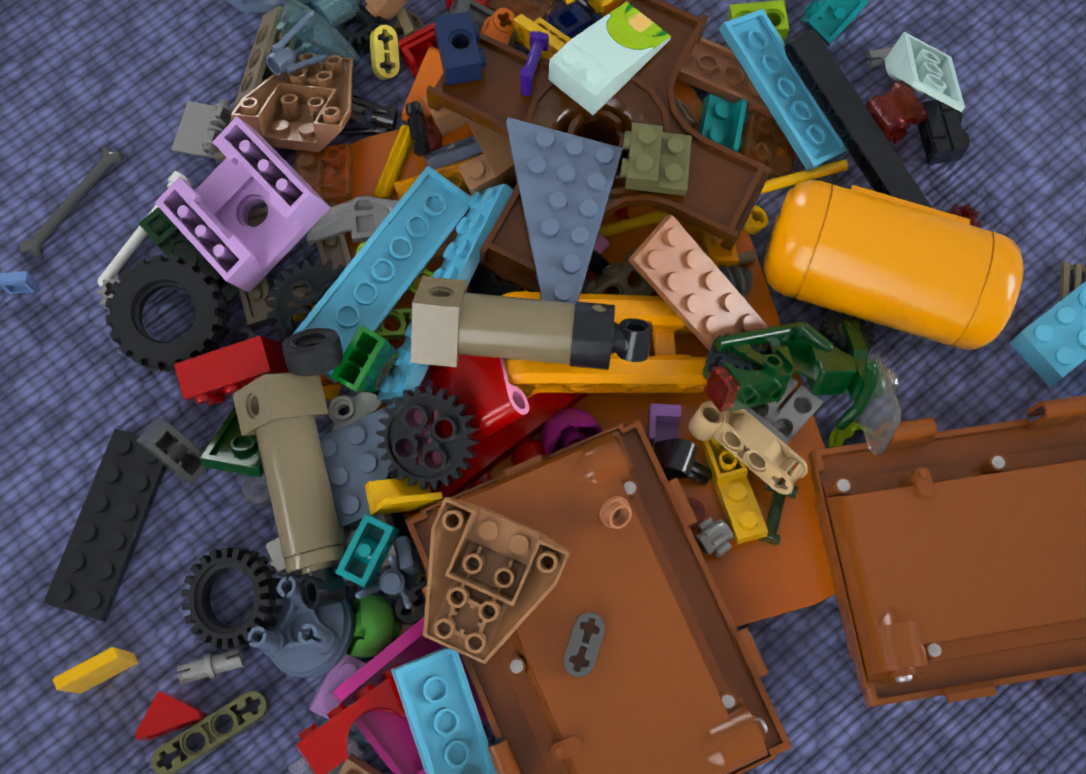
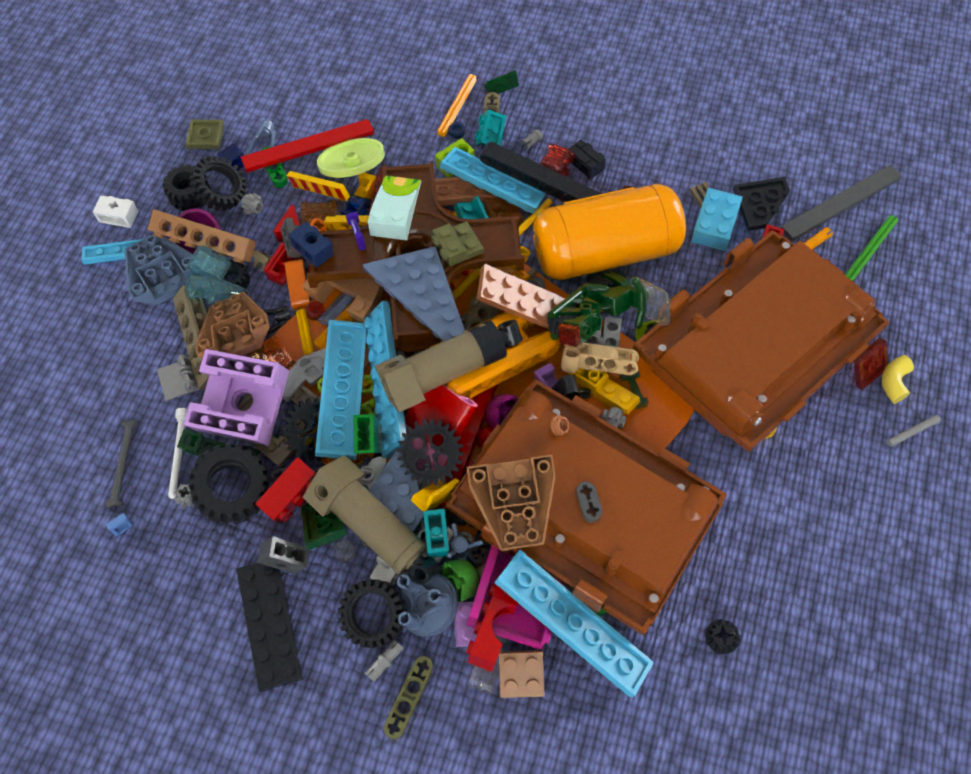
camera: 30 degrees left, 10 degrees down
(95, 670) = (319, 702): yellow tile -> none
(167, 715) = (378, 702): red slope -> none
(284, 59) = (205, 310): sand blue plant -> none
(312, 351) = (336, 443): black tyre -> none
(378, 53) = (258, 280): light yellow beam -> none
(408, 555) = (460, 526): sand blue tile -> none
(417, 128) = (307, 307): black axle -> none
(925, 70) = (559, 133): light aqua slope -> none

